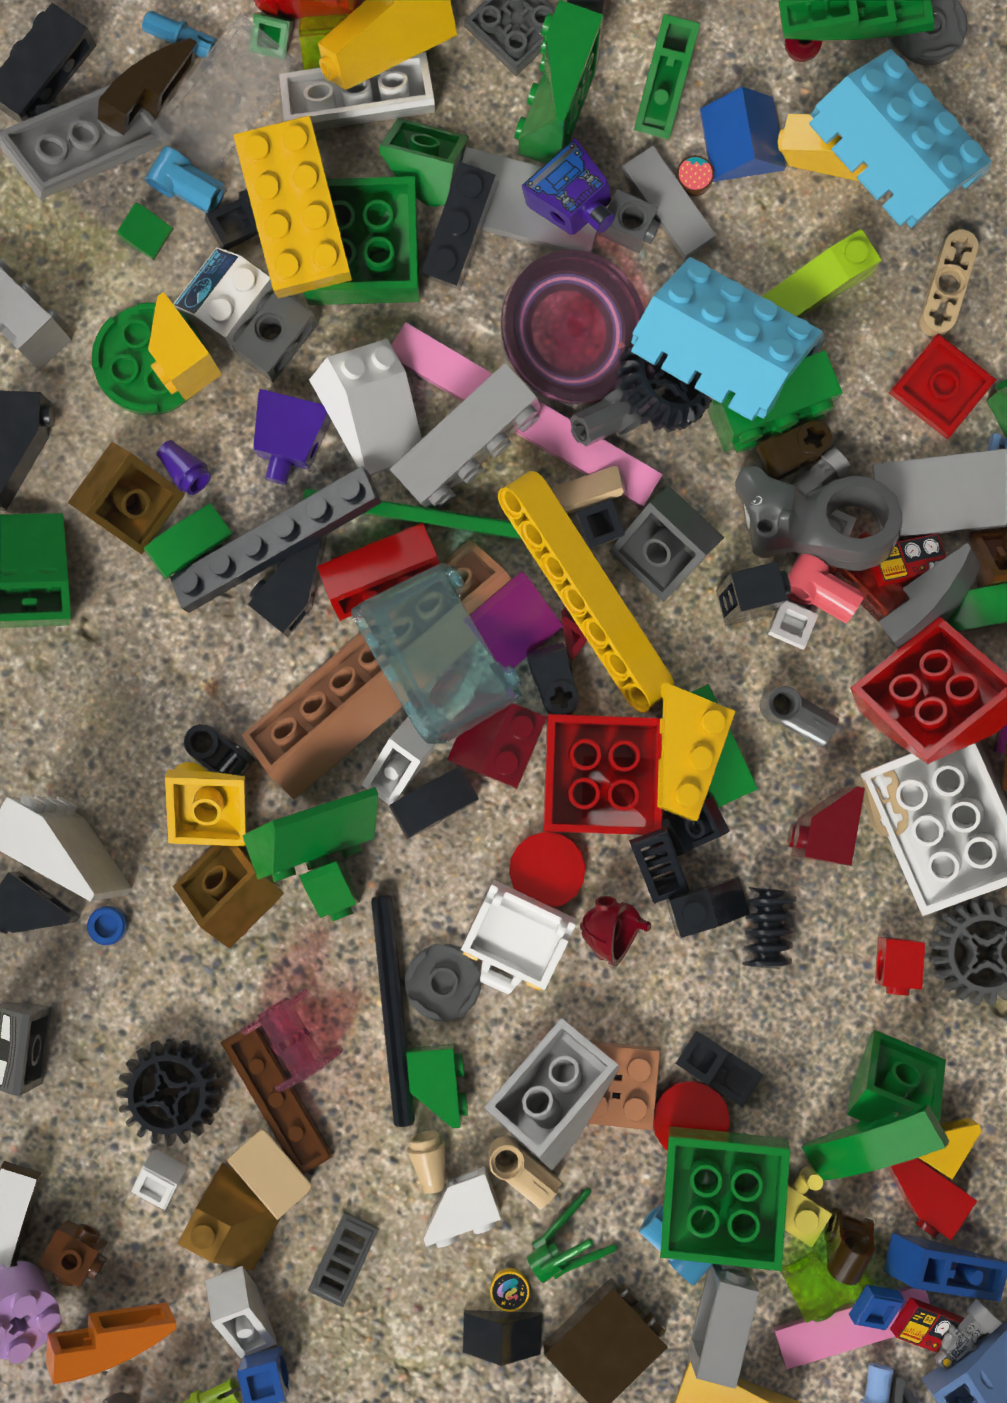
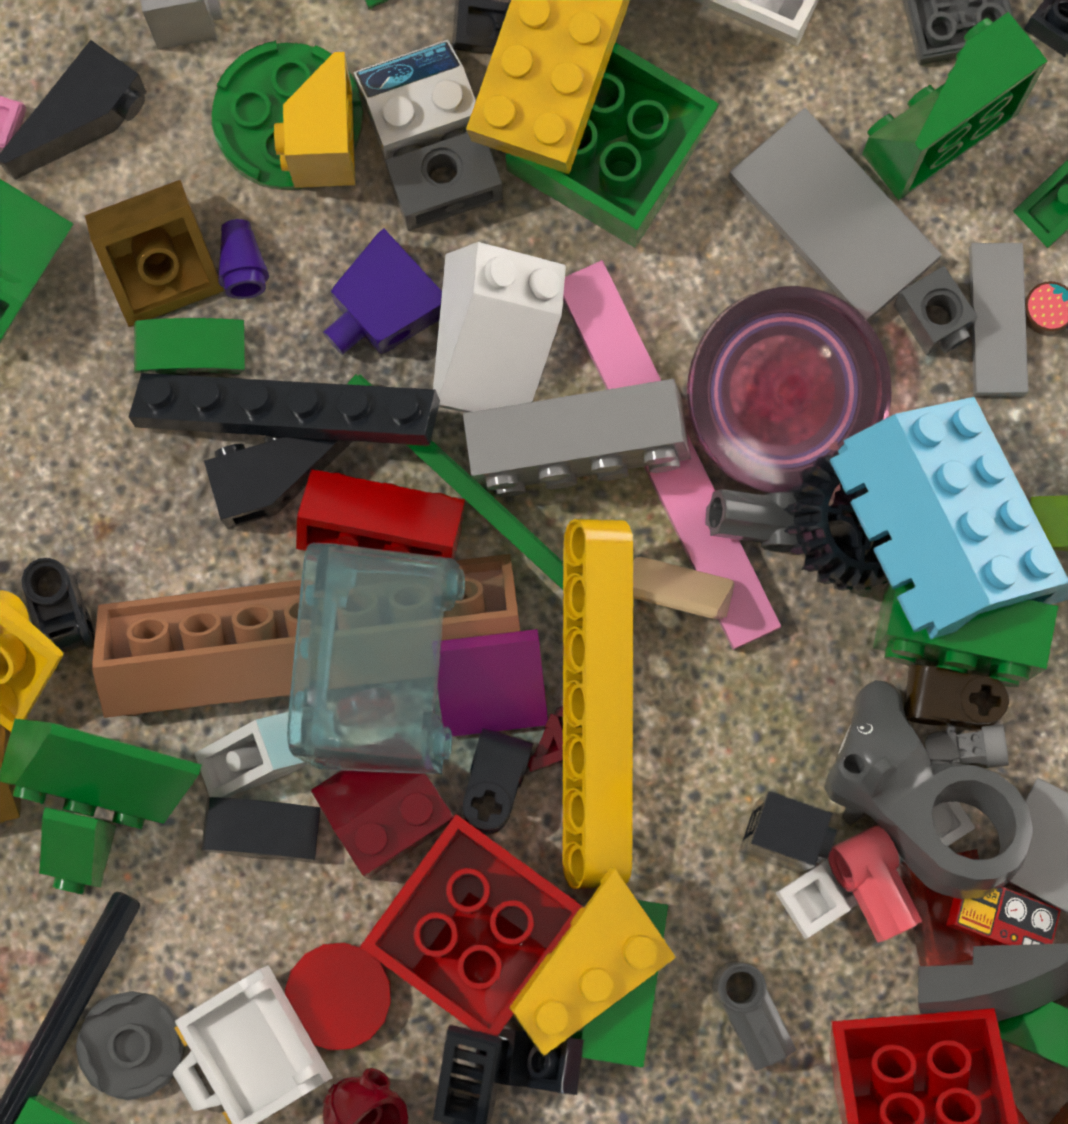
camera: 35 degrees right, 5 degrees down
(427, 154) = (752, 88): green slope -> none
(460, 225) = (734, 192): black brick -> none
(570, 191) = (887, 234): torso -> none
(598, 524) = (662, 634): black brick -> none
(666, 543) = (731, 708): dark grey slope -> none

